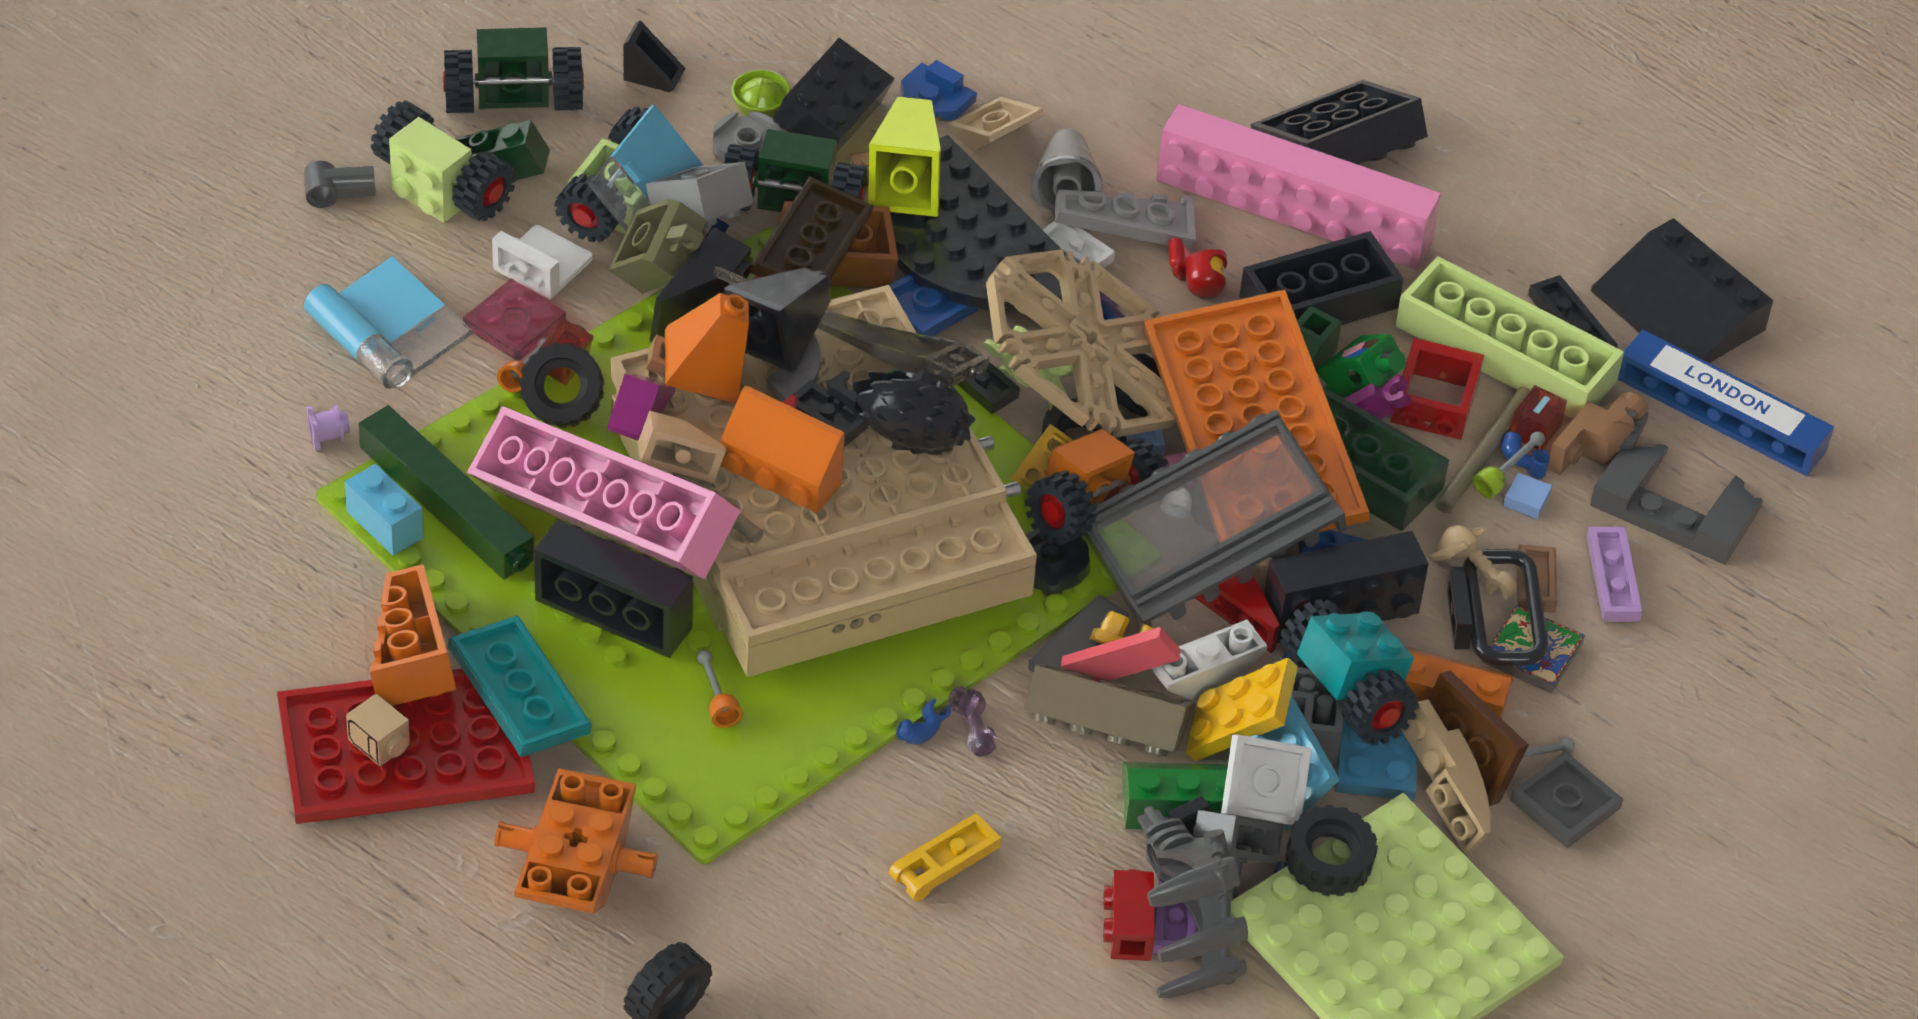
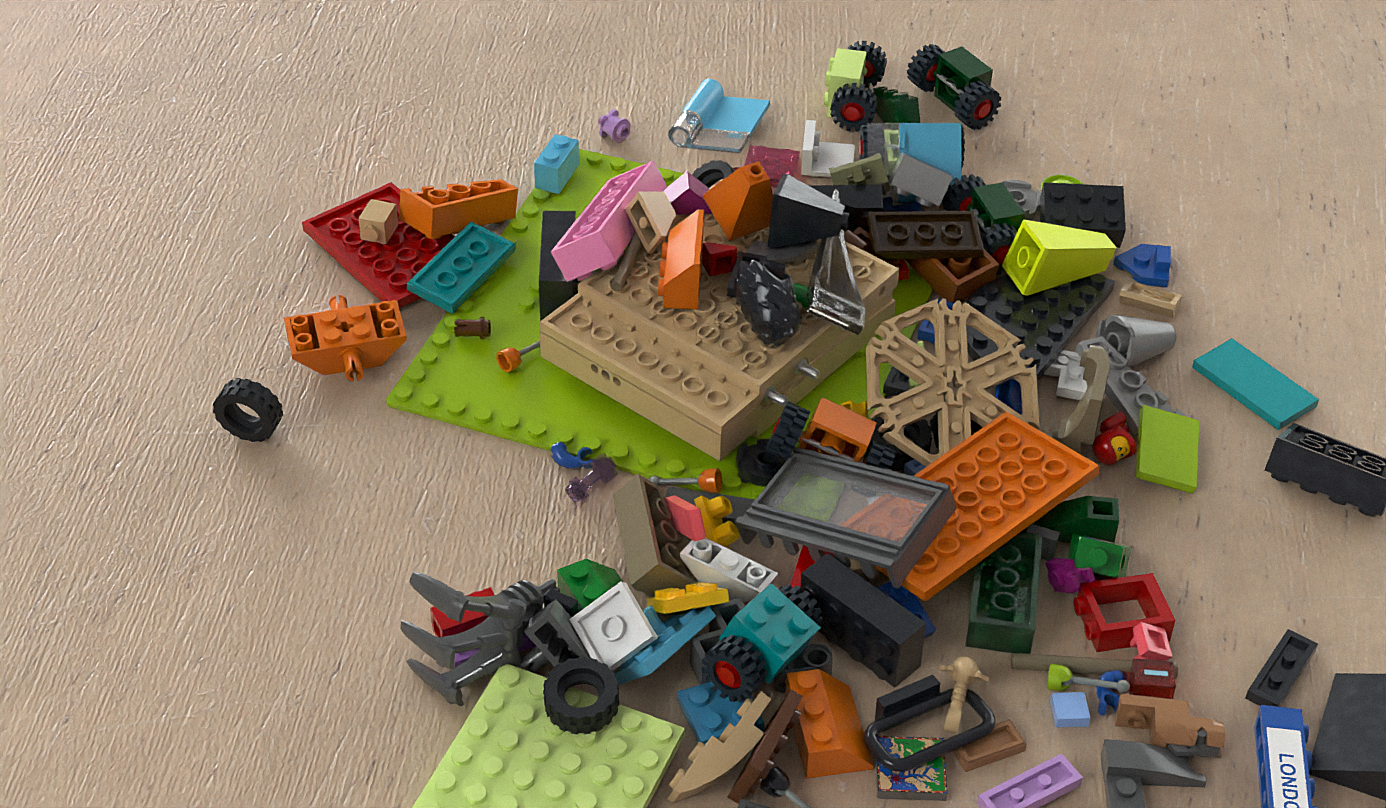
camera: 65 degrees right, 5 degrees down
(326, 183) = (809, 60): dark grey piece -> none
(446, 492) = (603, 164): dark green brick -> none
(648, 714) = (473, 328): none -> reddish brown pin
(649, 61) = (1040, 133): black slope -> none
(945, 856) = (461, 507): yellow plate -> none
(1052, 619) = (709, 480): none -> orange hinge
(1138, 119) = (1255, 383): none -> teal tile
(1164, 250) = (1083, 422): none -> dark tan slope
(1230, 227) = (1167, 449): none -> lime tile
(1295, 184) = (1241, 461): bright pink brick -> none
(1340, 278) = (1160, 507): black brick -> none
(1494, 388) = (1151, 642): none -> coral tile
(1517, 339) = (1212, 634): yellowish green brick -> none

